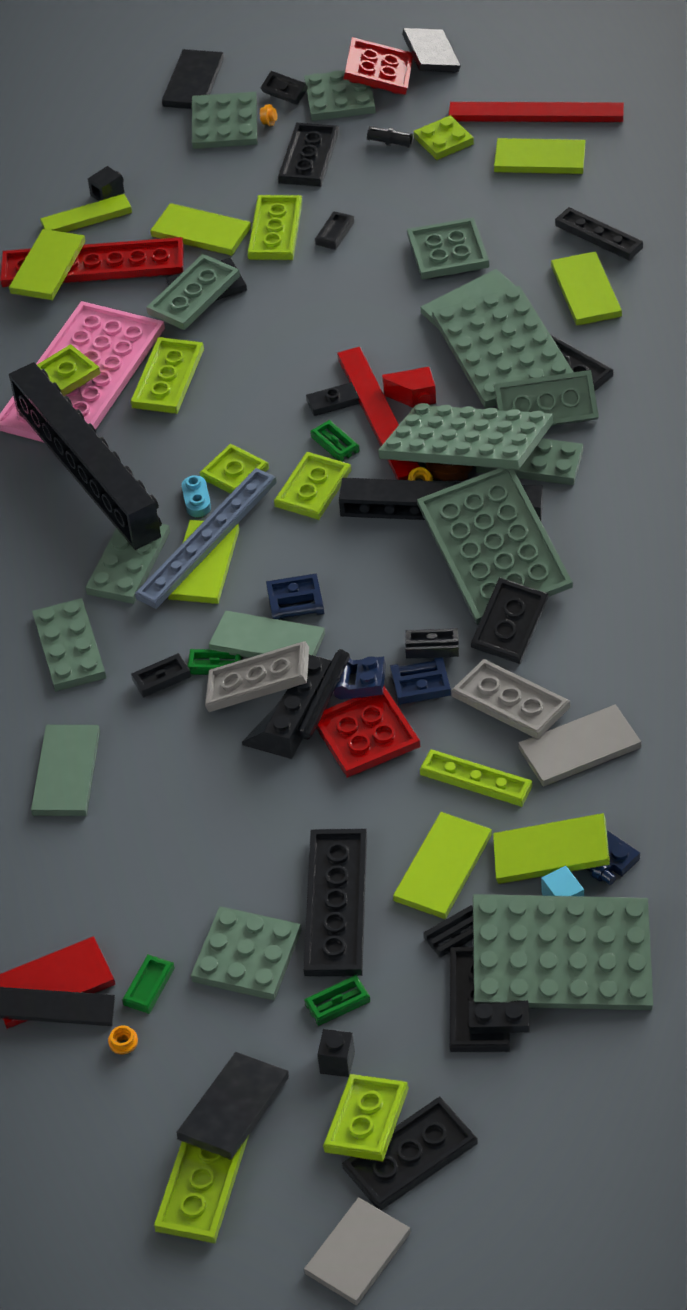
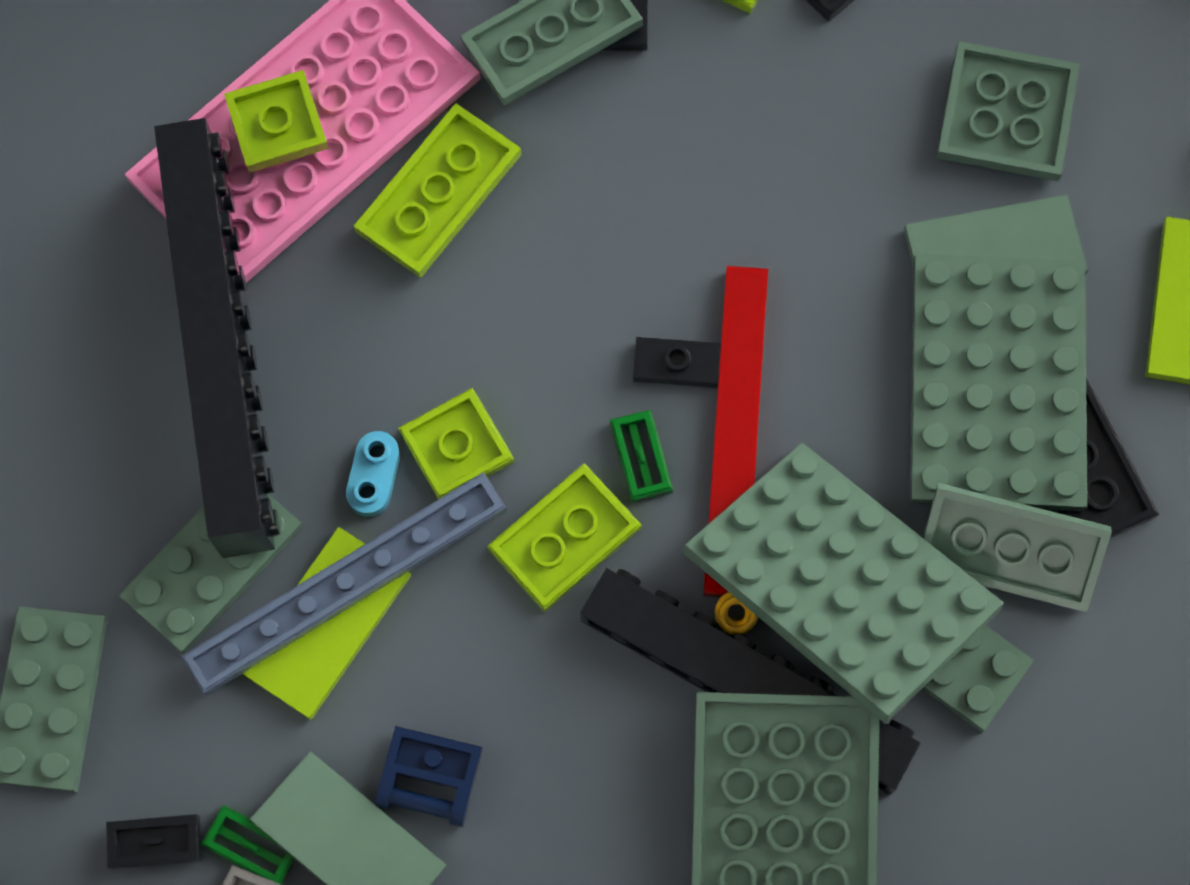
camera: 20 degrees right, 25 degrees up
(410, 386) = (812, 404): red slope -> none

